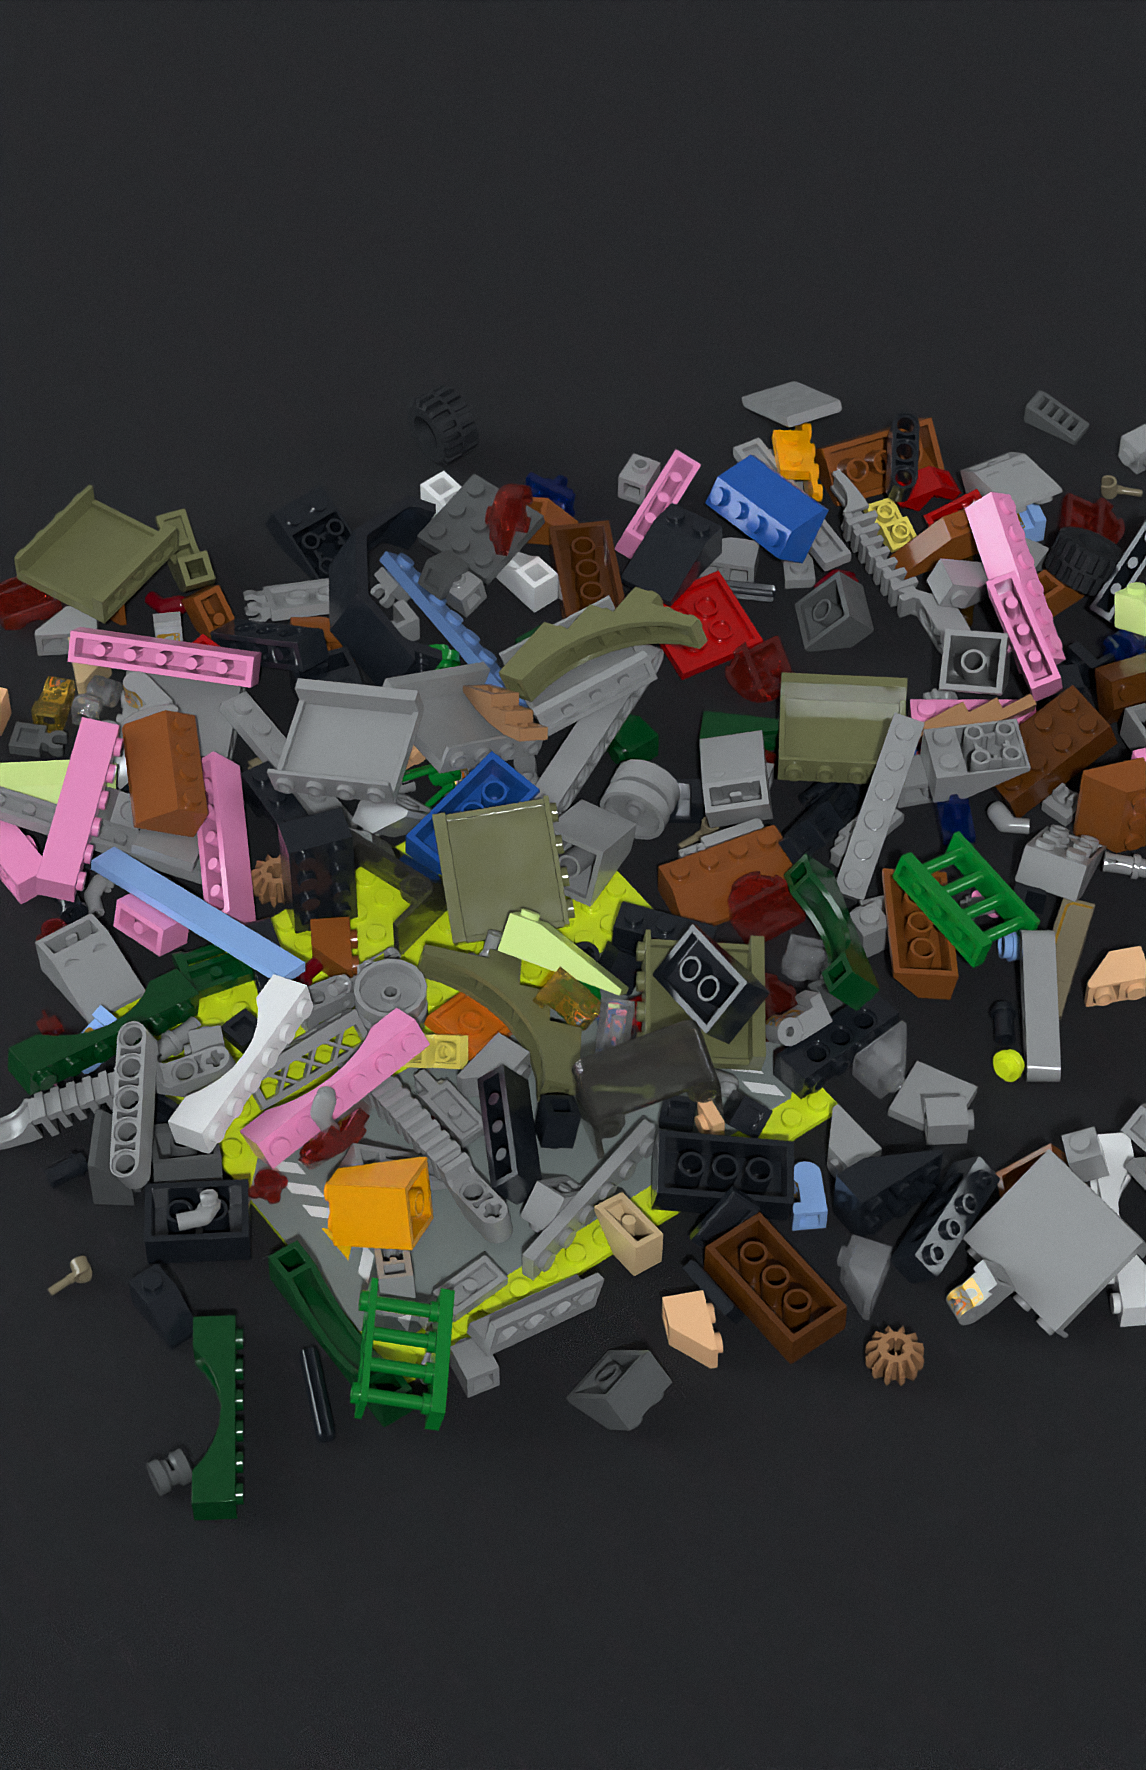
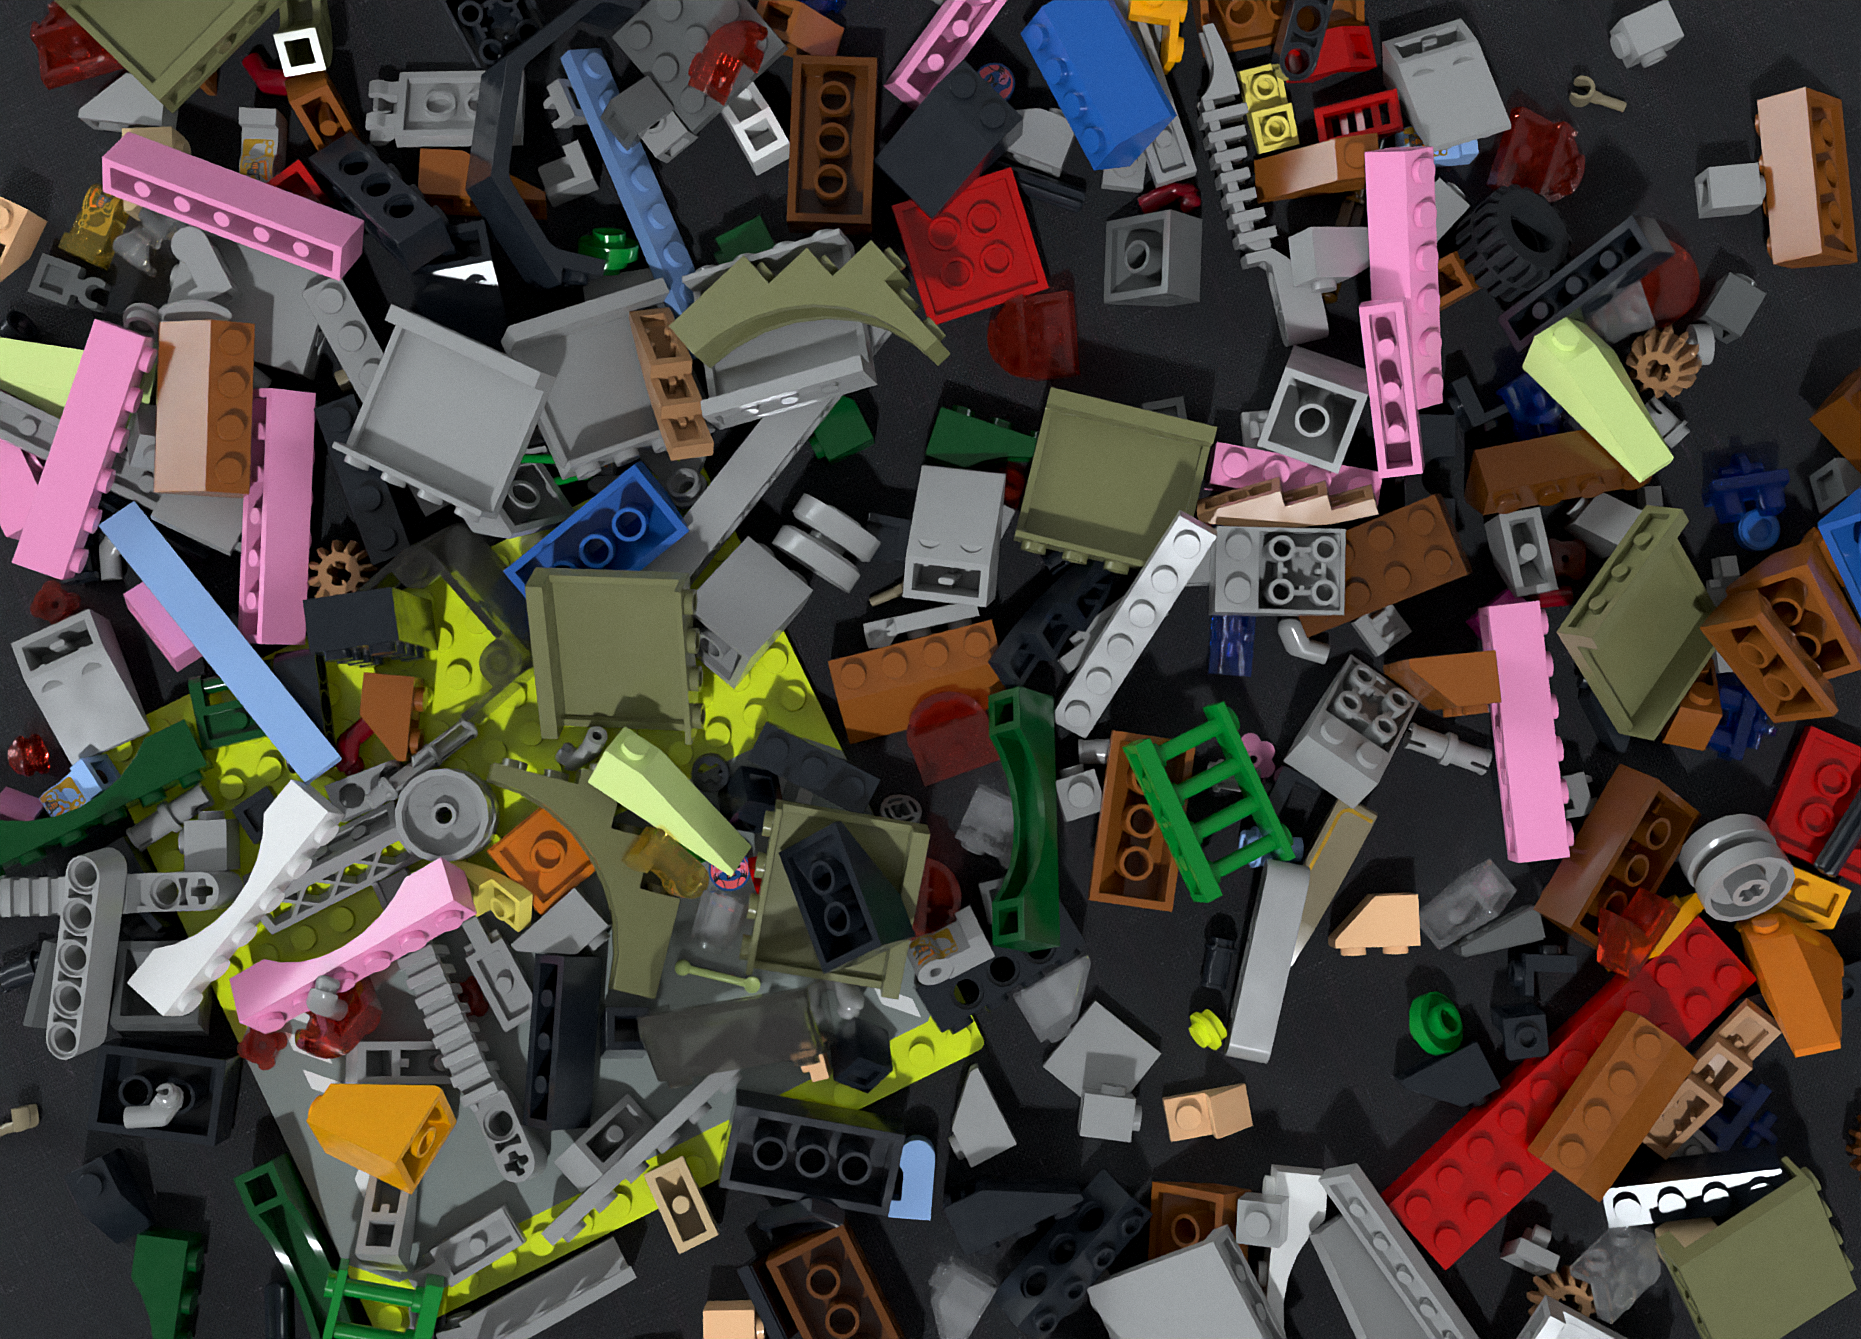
camera: 15 degrees right, 35 degrees up
(1024, 1123) = (1207, 1112): none -> light nougat slope

